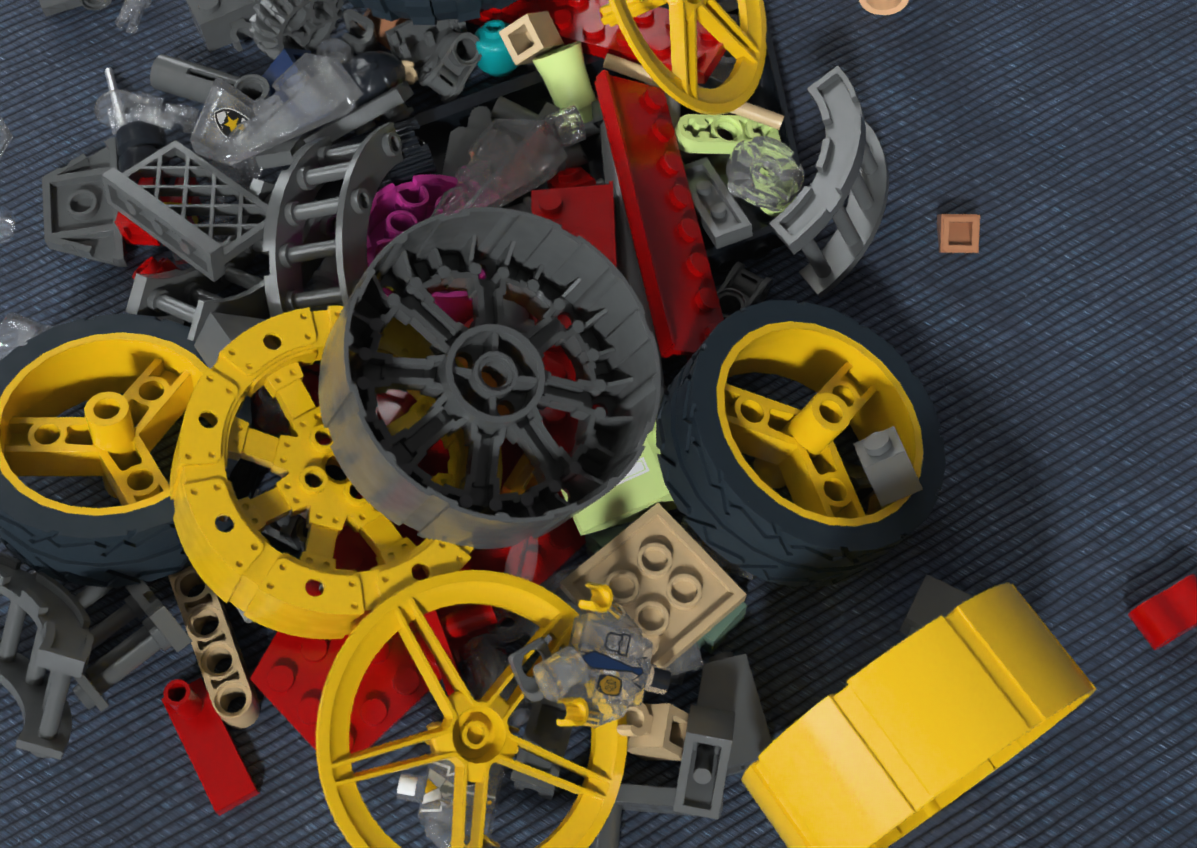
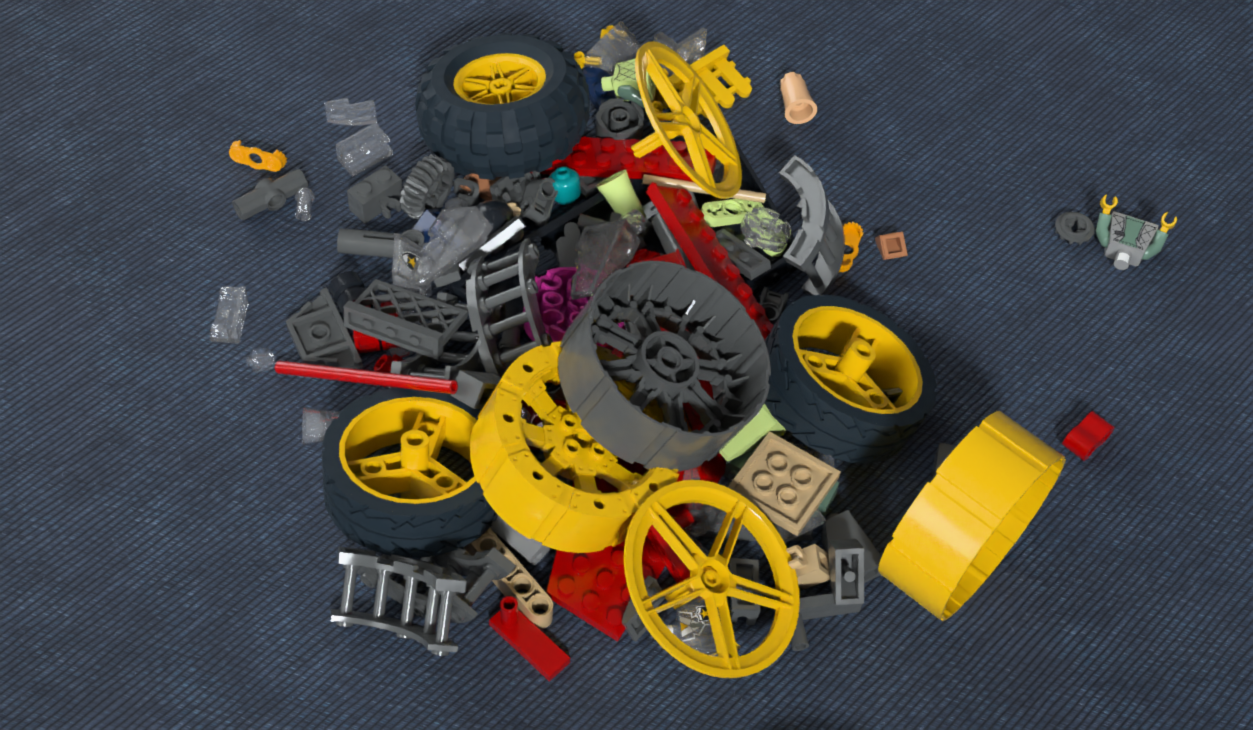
camera: 20 degrees left, 10 degrees down
(105, 290) = (367, 377): none -> red piece
(110, 105) = (320, 268): clear piece -> none
(151, 110) = (363, 266): clear plate -> none
(394, 721) = (631, 619): none -> dark grey slope
(530, 37) = (590, 173): tan brick -> none
(552, 675) = (750, 530): clear leg -> none
(616, 662) = (775, 520): clear torso -> none
(887, 466) = (903, 376): dark grey slope -> none
(900, 207) = (852, 238): none -> light orange piece

